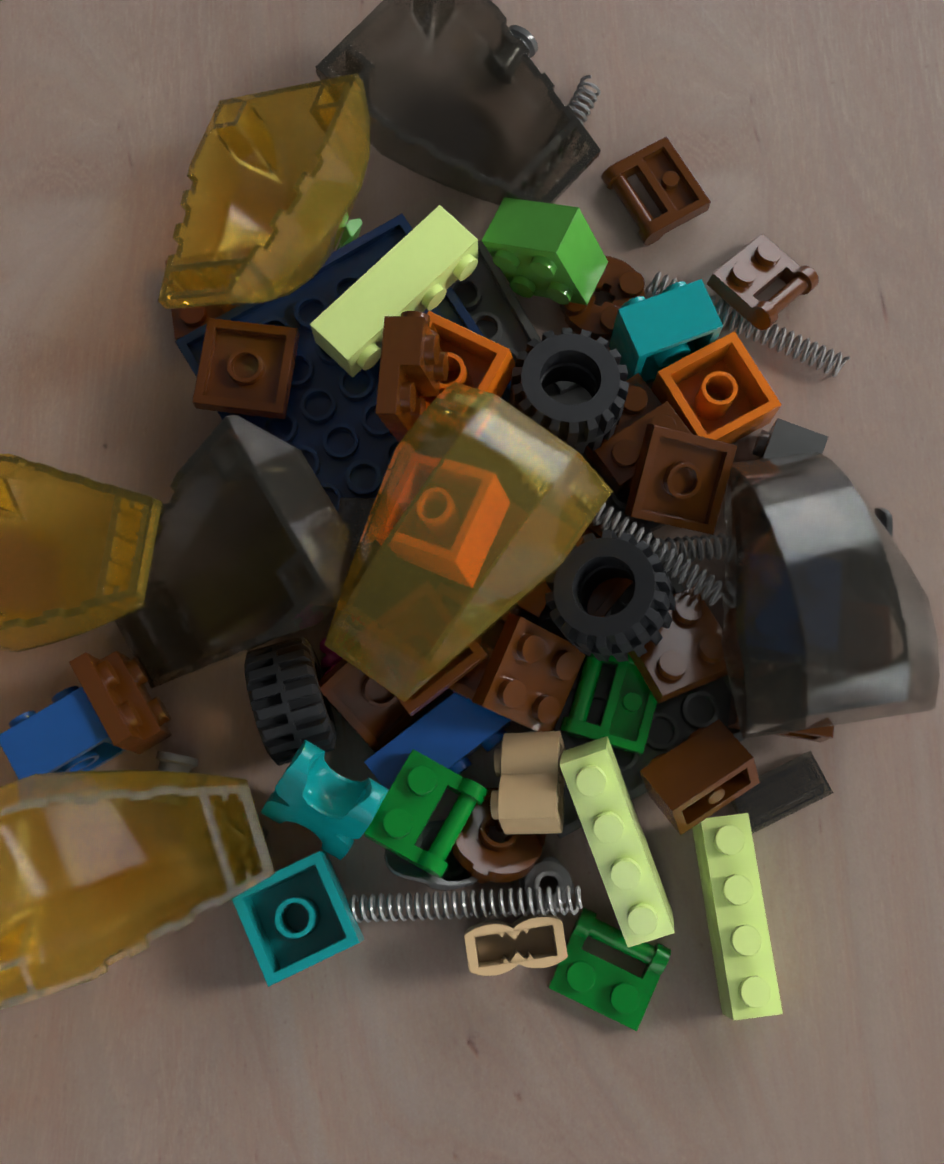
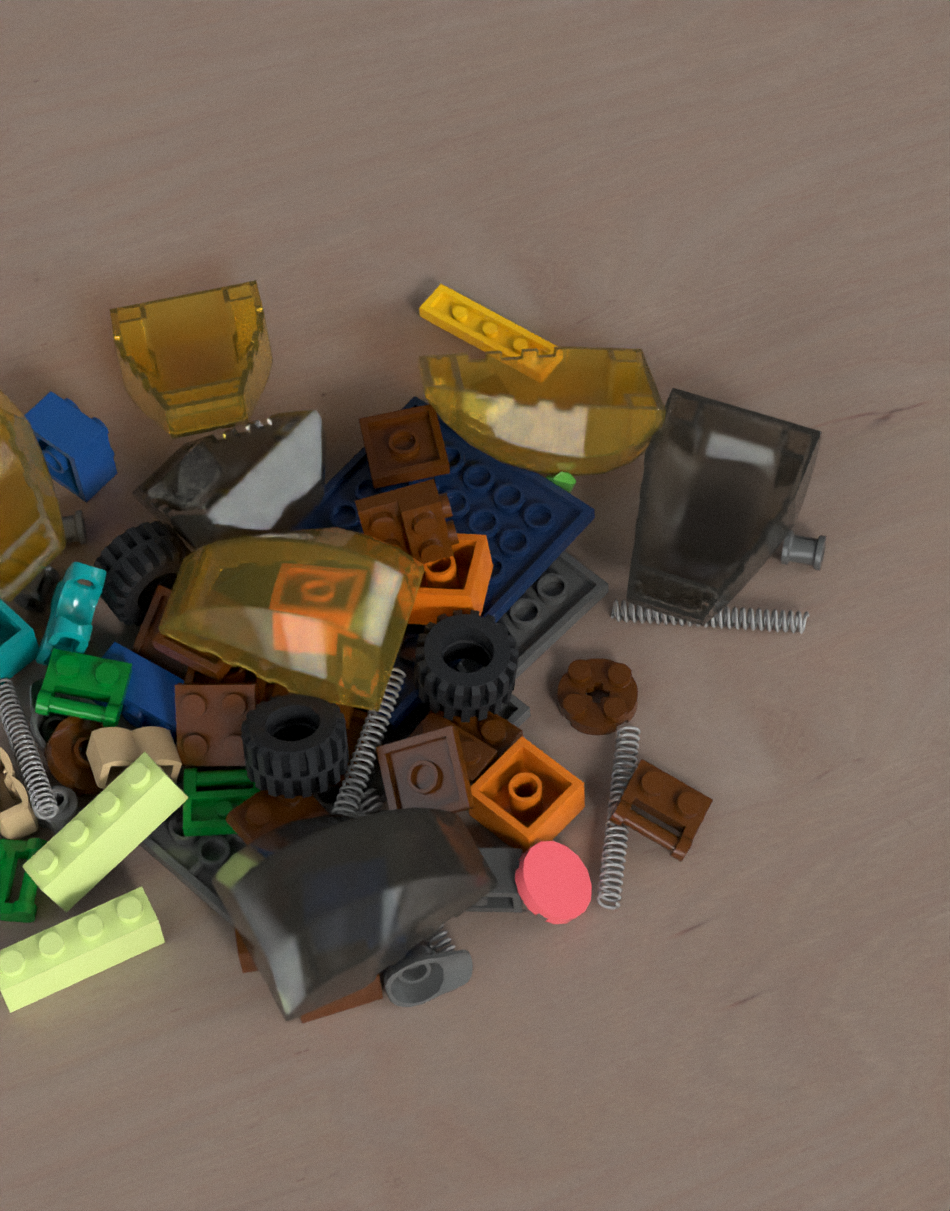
camera: 75 degrees right, 20 degrees down
(107, 249) = (479, 324): none -> yellow plate
(122, 700) = (108, 467): reddish brown plate -> none
(404, 279) = (517, 521): yellowish green brick -> none
(545, 250) = (598, 621): bright green brick -> none
(664, 328) = (567, 732): teal brick -> none
(667, 183) = (728, 711): reddish brown plate -> none
(700, 776) = (173, 871): reddish brown brick -> none
(783, 792) = (193, 964): clear smoke tile -> none
(819, 403) = (553, 882): none -> coral tile

